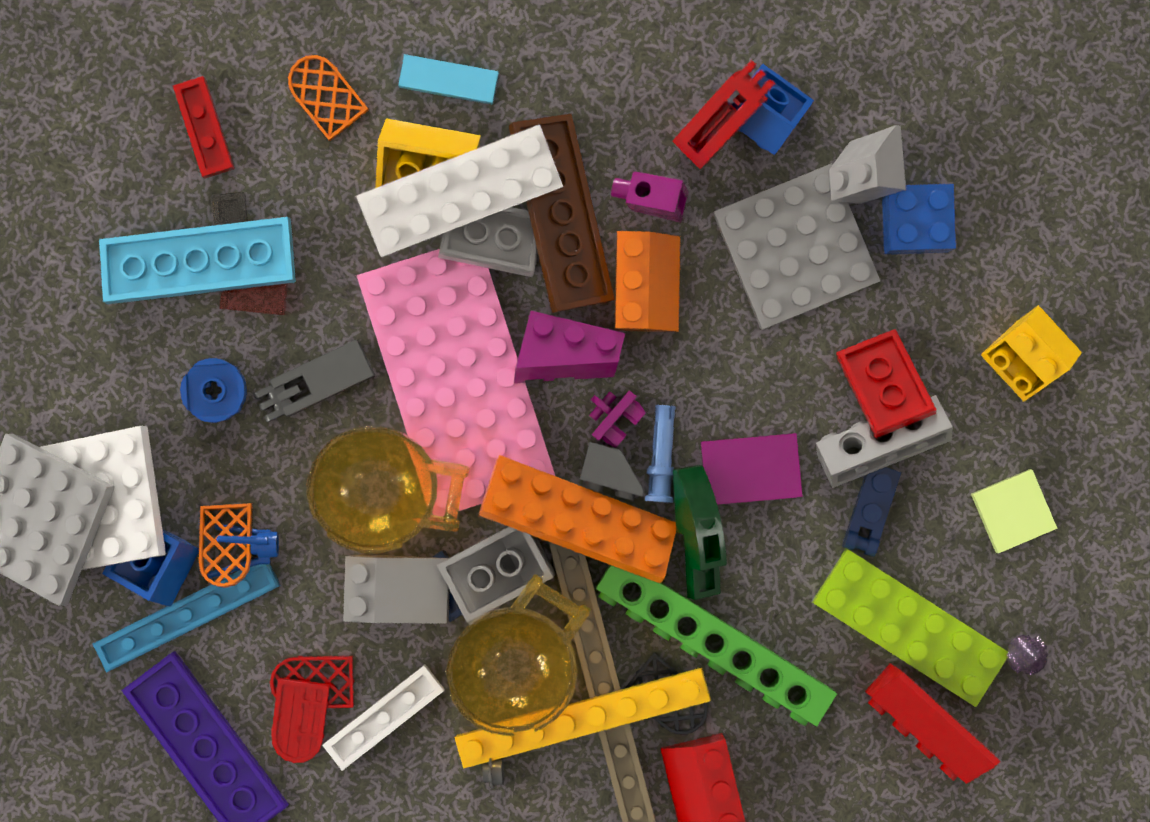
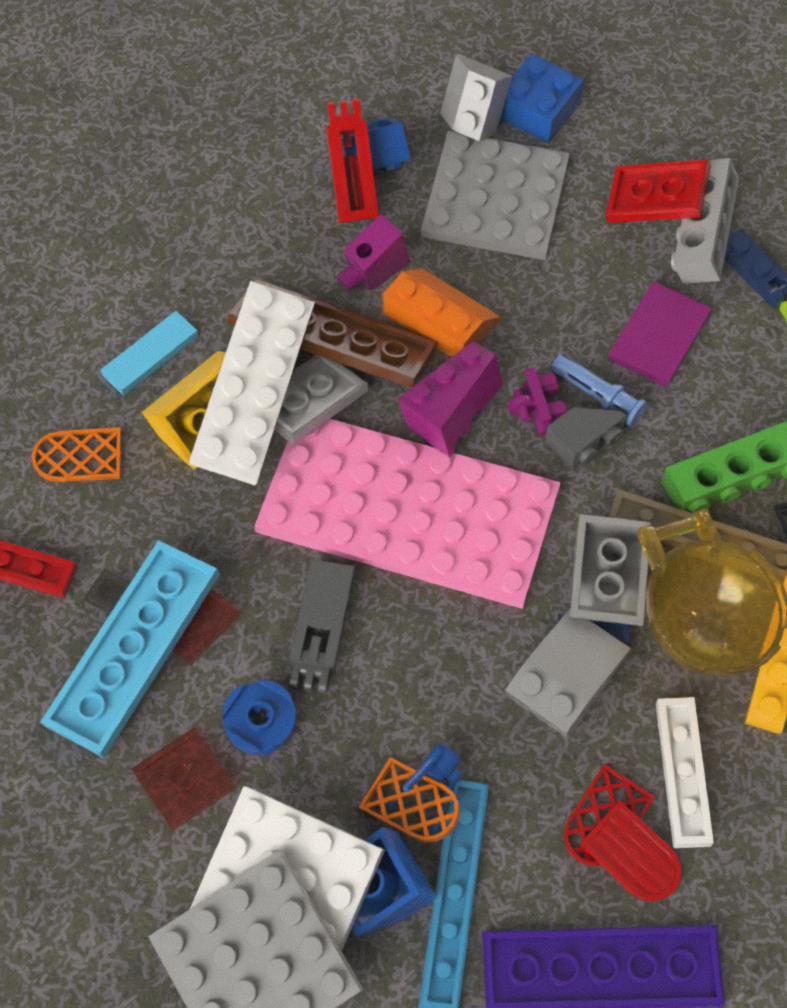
camera: 55 degrees left, 25 degrees down
(135, 369) = (183, 779): none -> clear red tile
(379, 489) = (462, 613): clear yellow windscreen -> none
(579, 519) = (609, 476): orange plate -> none
(702, 530) = (677, 388): dark green slope -> none
(1032, 353) = (706, 89): yellow slope -> none

